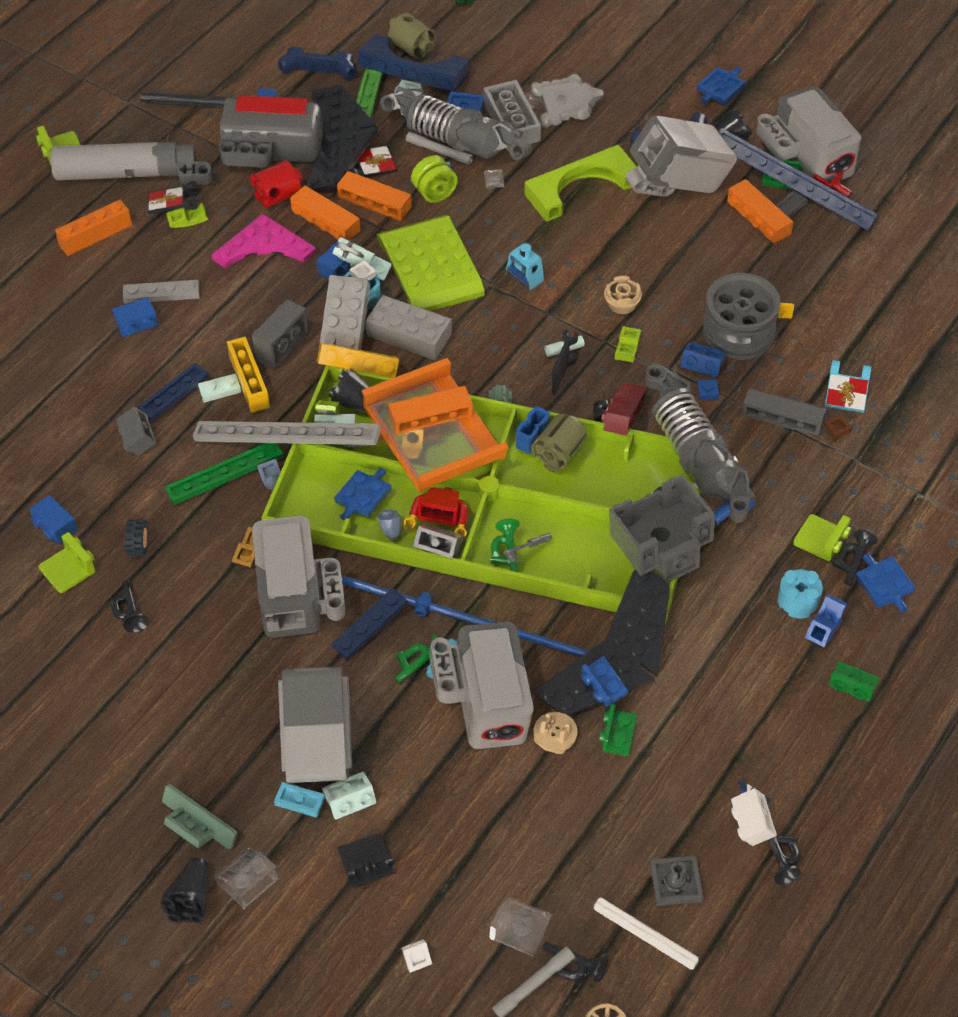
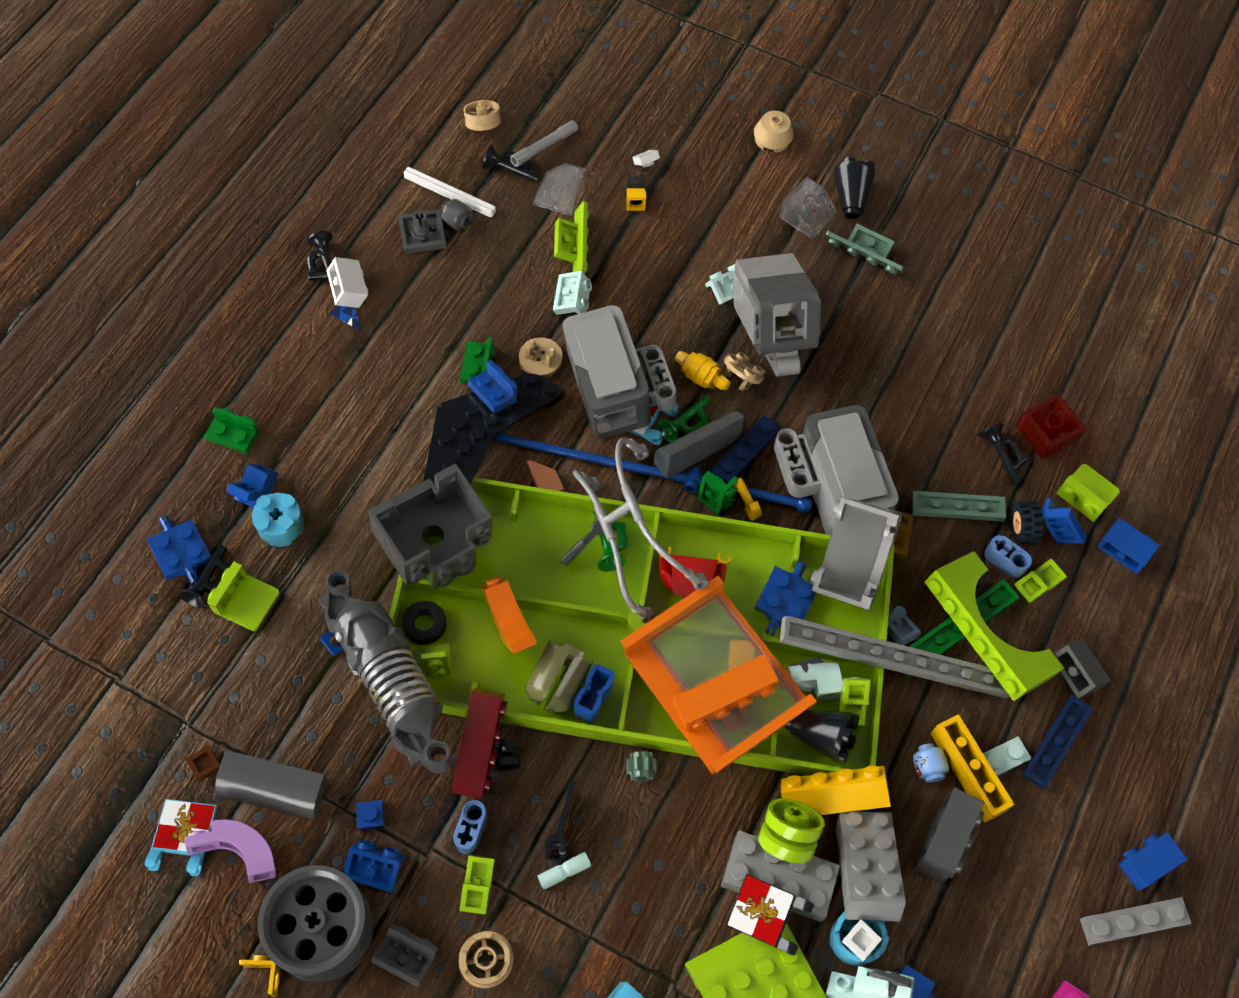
camera: 170 degrees right, 10 degrees up
(79, 617) = (1050, 426): none -> clear red brick
(108, 529) = (1062, 523): none -> blue bracket
(143, 502) = (1040, 581): none -> lime slope
(161, 519) = (1015, 553): none -> medium blue beam
(189, 564) = (958, 506): none -> sand green plate
(218, 487) = (1013, 668): none -> lime arch
(259, 981) = (774, 131): none -> tan cone
(277, 385) = (930, 763): none -> light blue head
(300, 494) = (857, 552): none -> light grey windscreen
(365, 698) = (740, 365): none -> tan plate
(366, 860) = (704, 231): black hinge -> none
(376, 578) = (751, 508): none -> yellow bar
(390, 523) = (748, 559): sand blue plate -> none
(397, 335) = (791, 830): none -> lime wheel
(397, 697) = (702, 370): none -> yellow piece
(405, 577) = (716, 493): none -> green bracket
(413, 623) = (699, 444): none -> dark grey brick
(423, 295) = (764, 911): none -> flag
(434, 912) = (636, 191): none -> leg
(438, 540) = (687, 532): dark grey brick -> none
(482, 478) = (592, 485): none -> light grey bar
(512, 855) = (572, 239): none -> lime bracket
(518, 793) = (572, 293): none -> light aqua bracket
(558, 617) = (545, 477): none -> nougat tile
(596, 477) = (507, 615): none -> orange arch
(633, 369) = (461, 829): none -> medium blue beam
(638, 895) = (456, 214): none -> dark grey head
(657, 464) = (437, 661): none -> lime bracket
(679, 306) = (405, 955): none -> dark grey bracket
(806, 376) = (237, 838): none -> lavender arch

